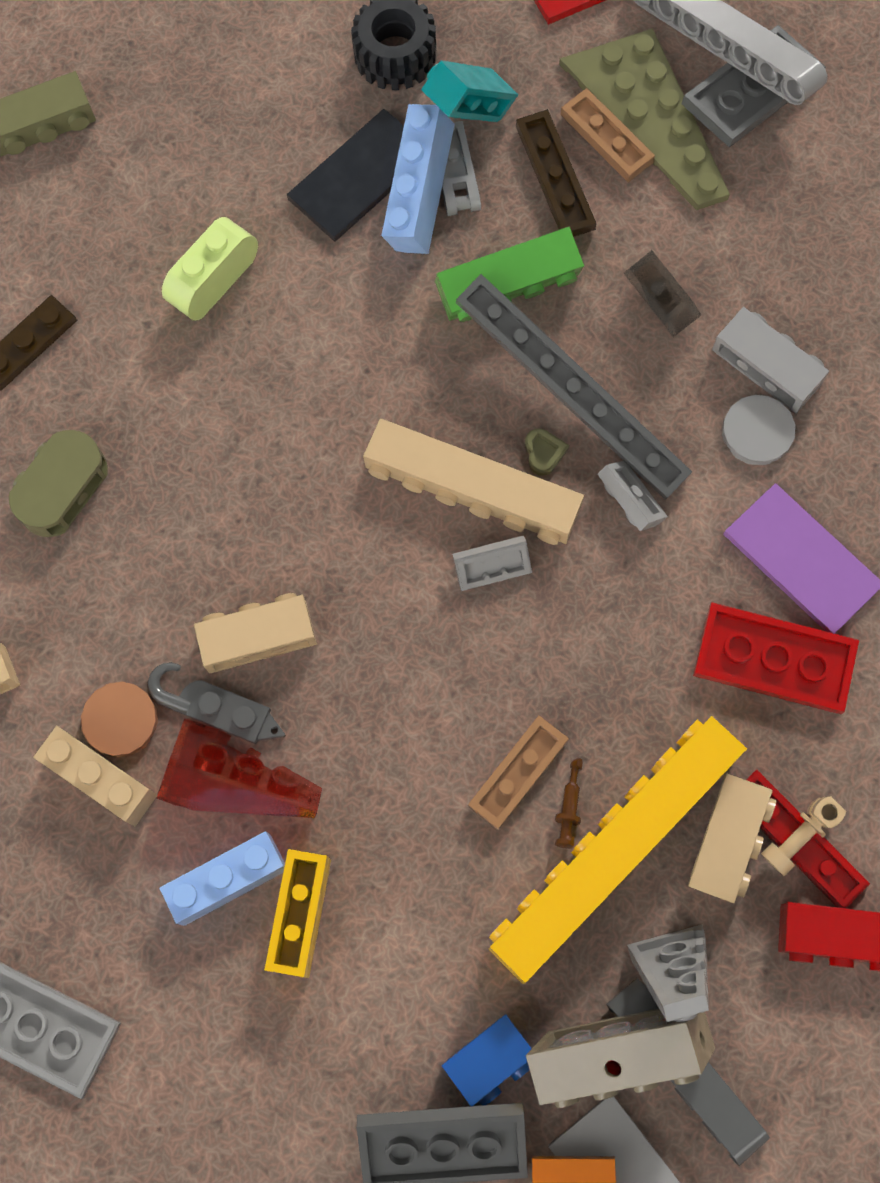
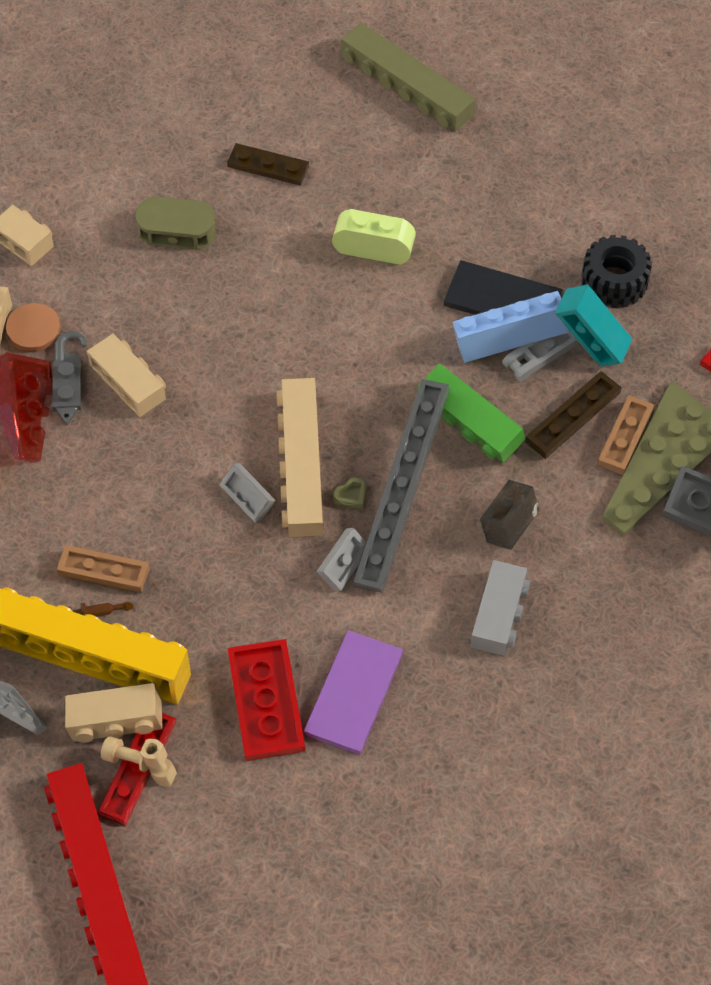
camera: 60 degrees right, 15 degrees down
(758, 429) = (441, 624): light grey tile -> none

